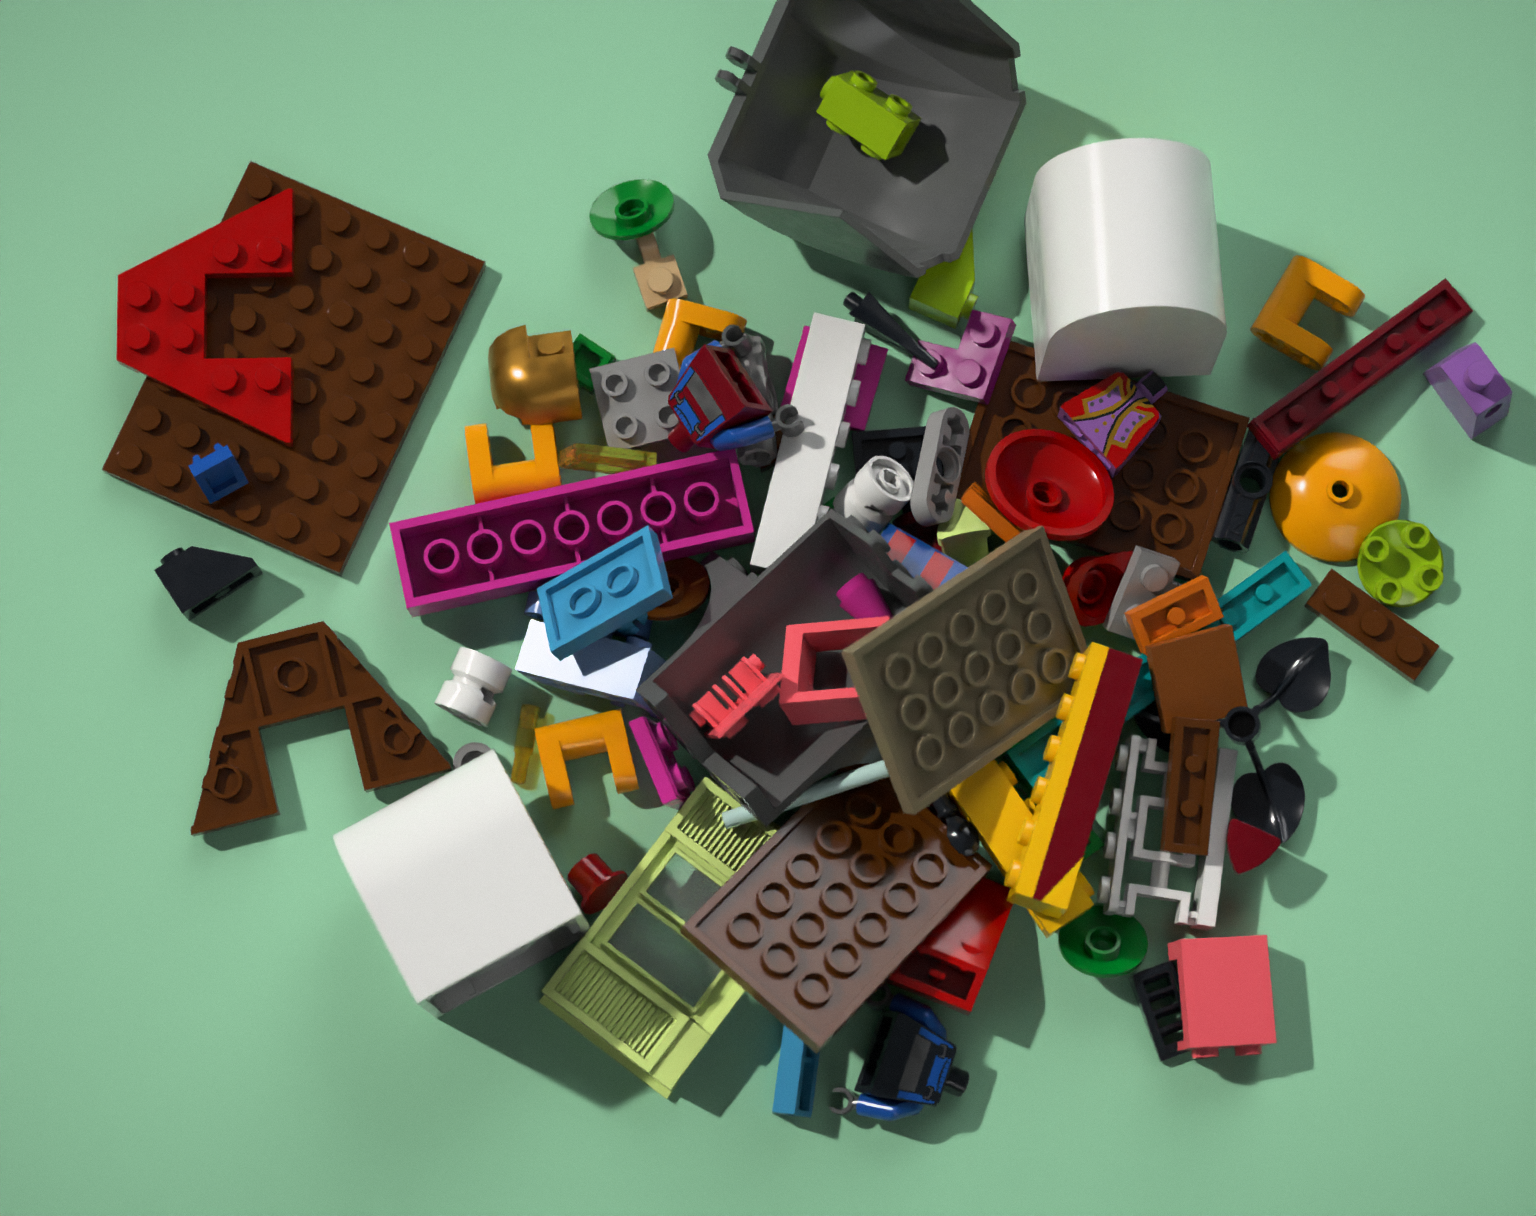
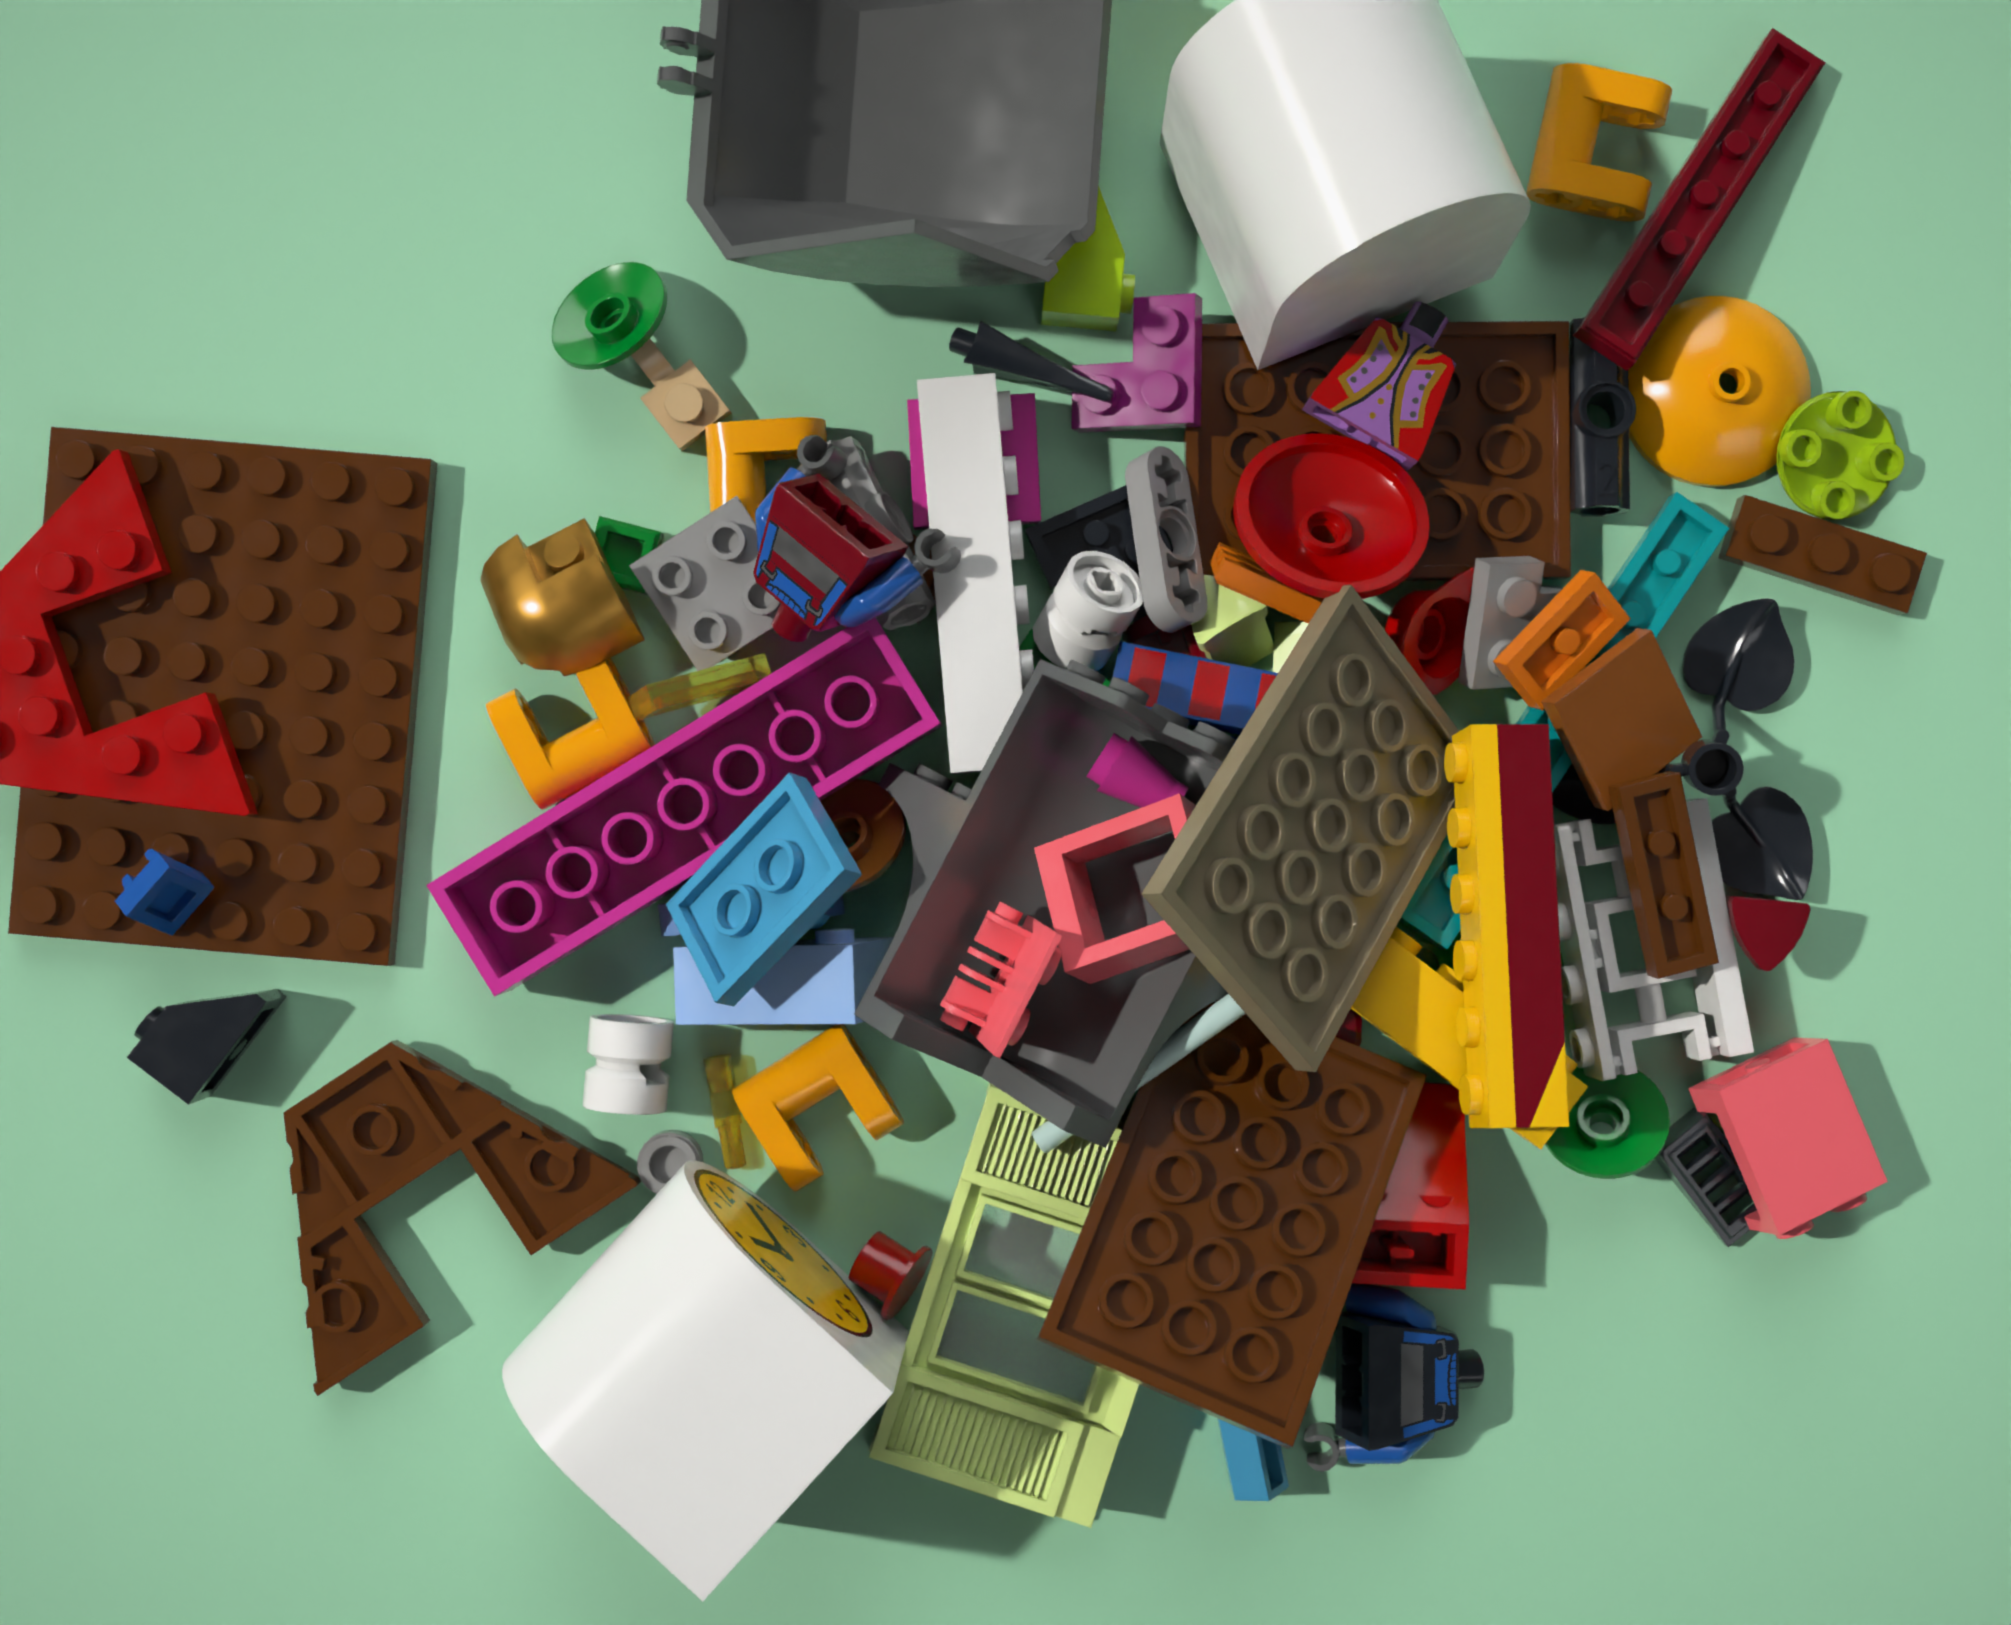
camera: 25 degrees left, 10 degrees up
(657, 749) = (936, 1100): dark pink tile -> none
(867, 114) = (893, 62): lime brick -> none
(960, 832) = (1371, 1048): black piece -> none
(1471, 388) = (1860, 170): medium lavender torso -> none

